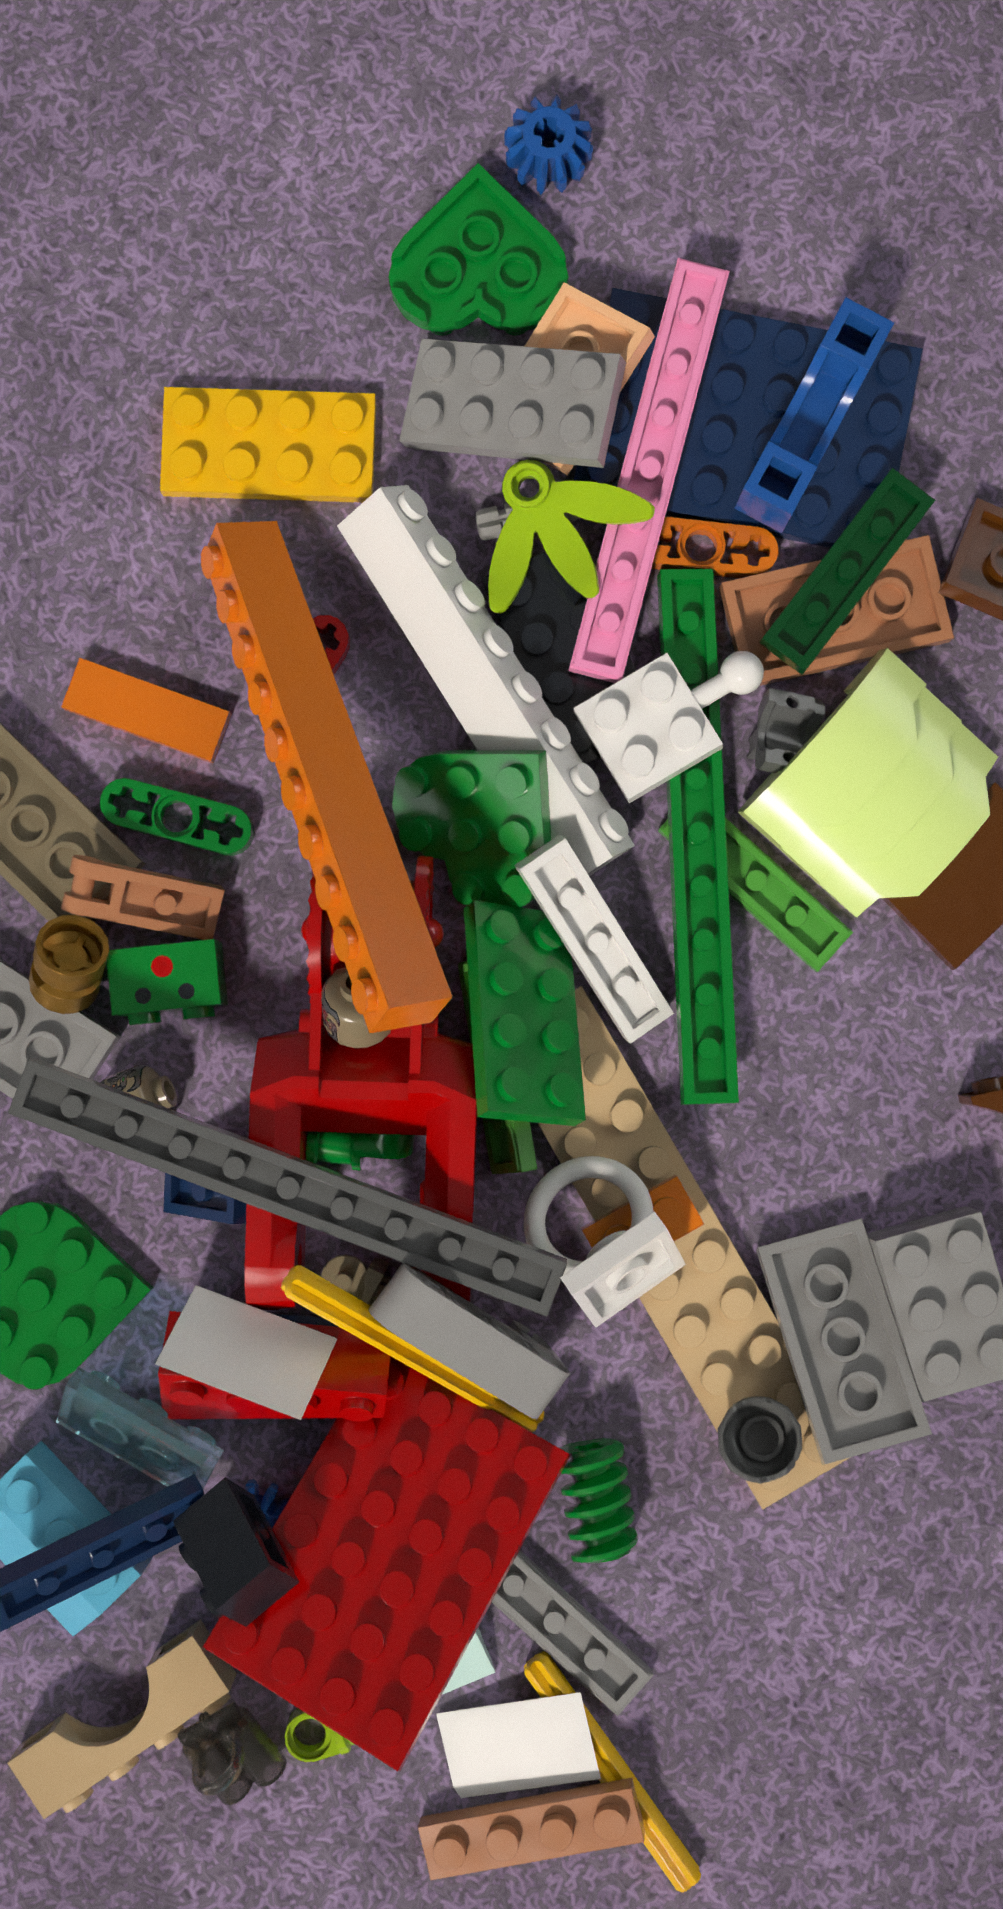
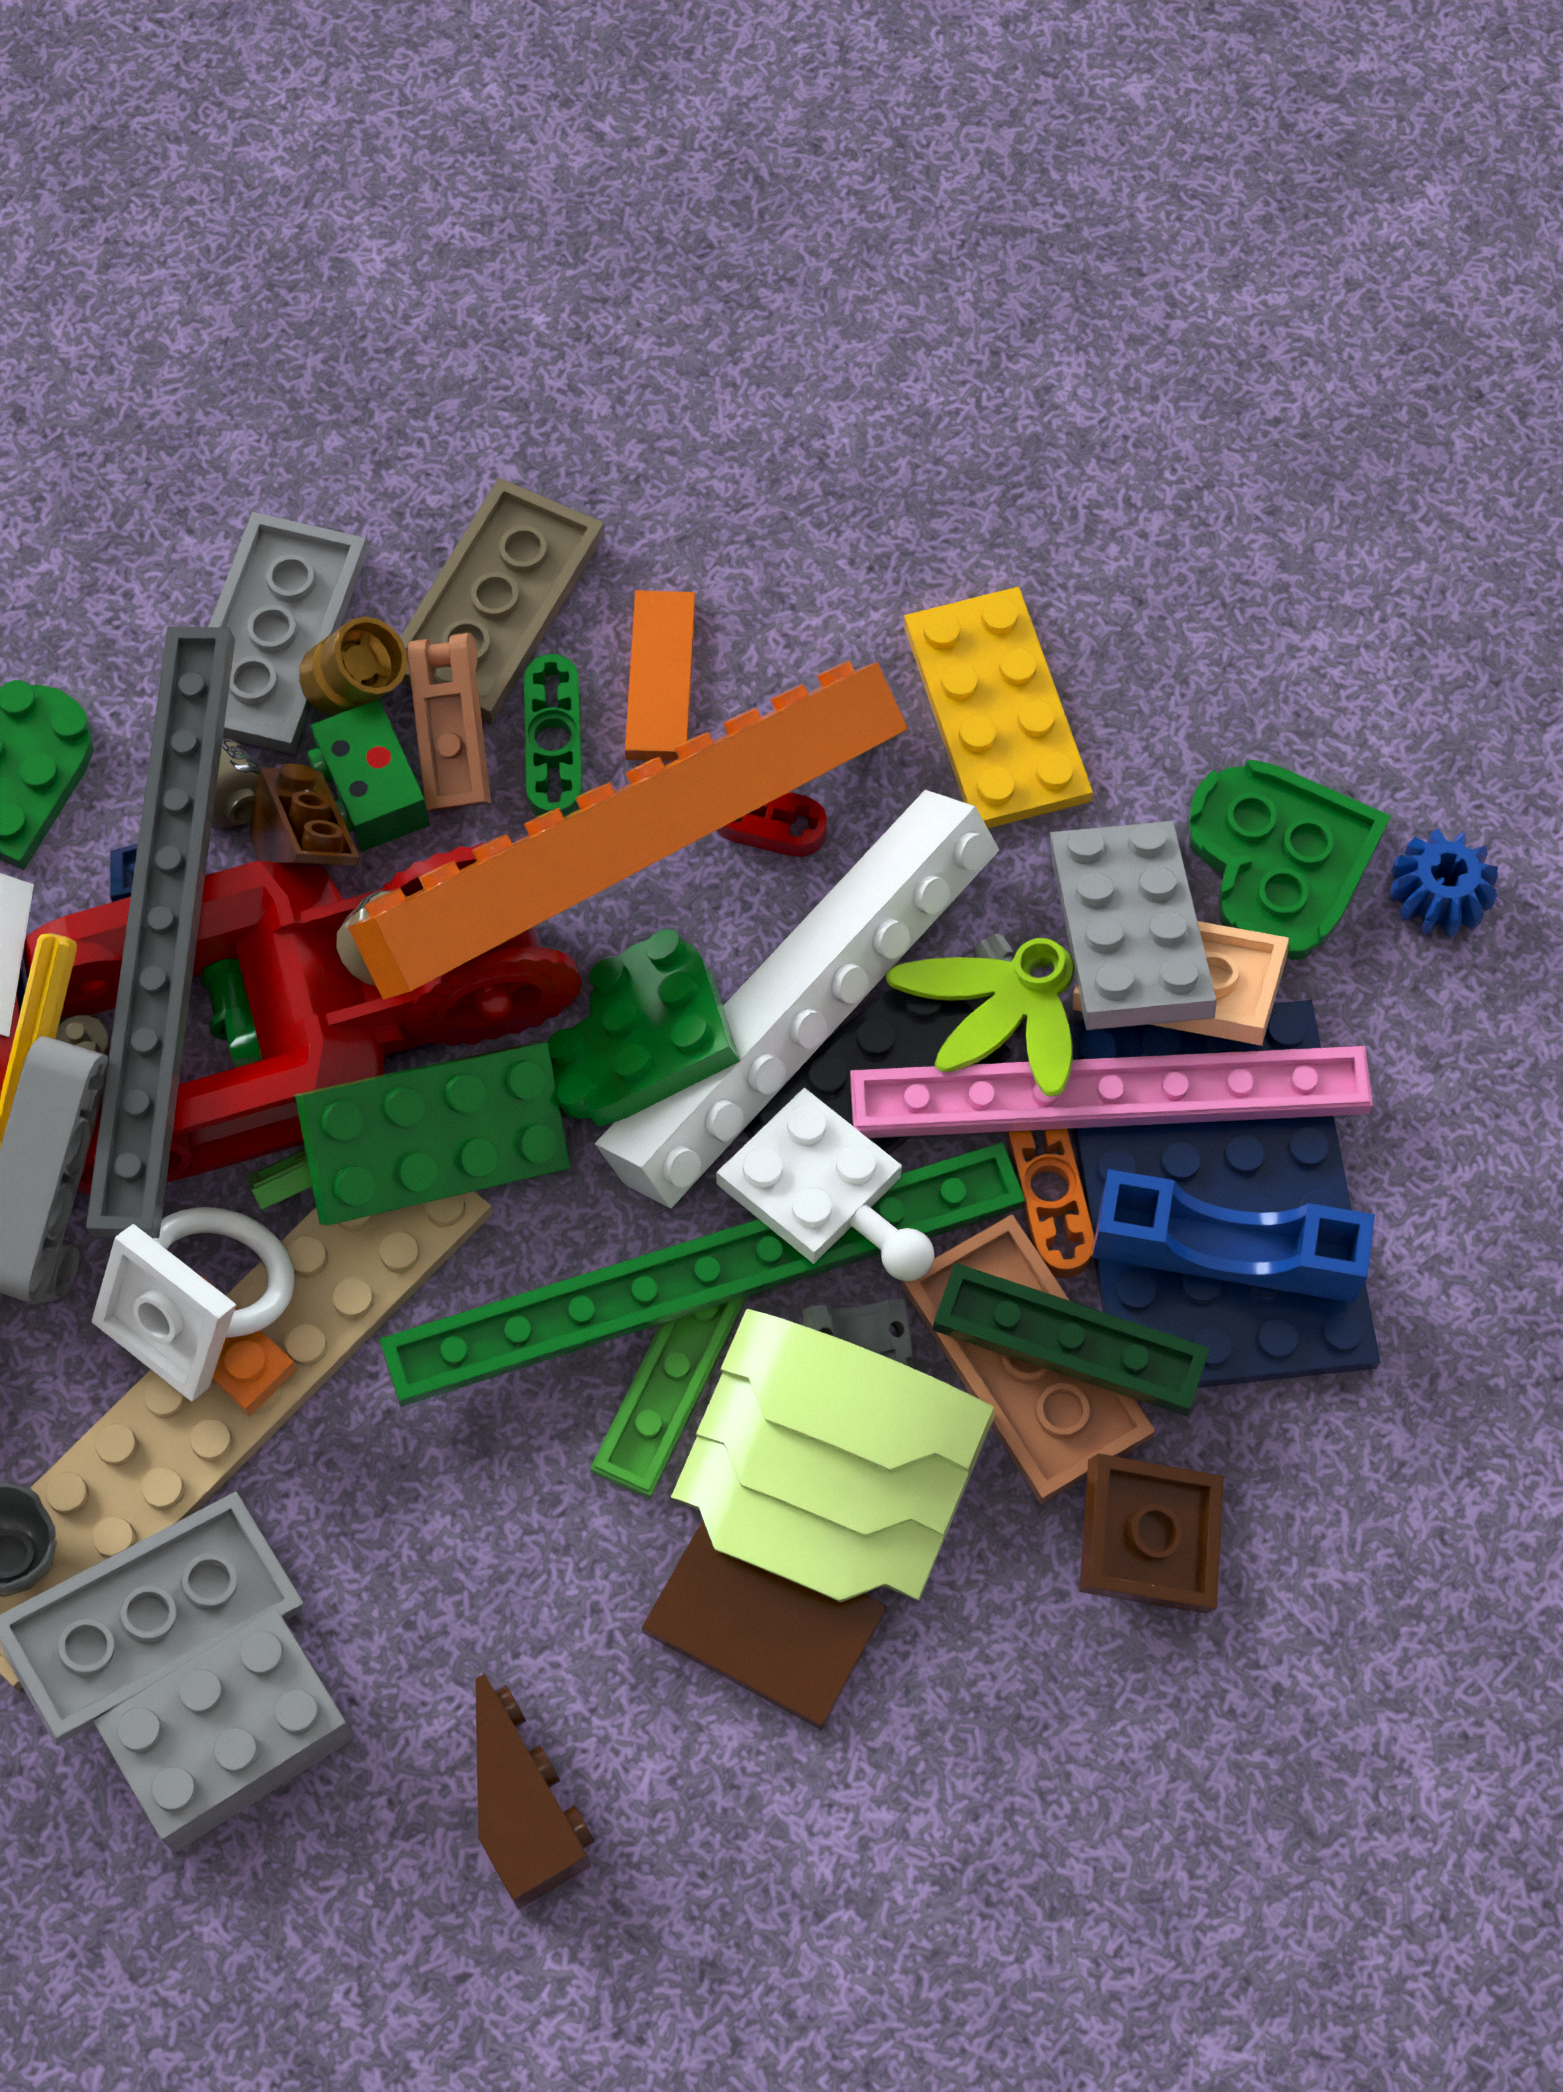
camera: 75 degrees right, 20 degrees down
(216, 1048) = (299, 819): none -> reddish brown slope
(594, 938) = (544, 1188): white plate -> none

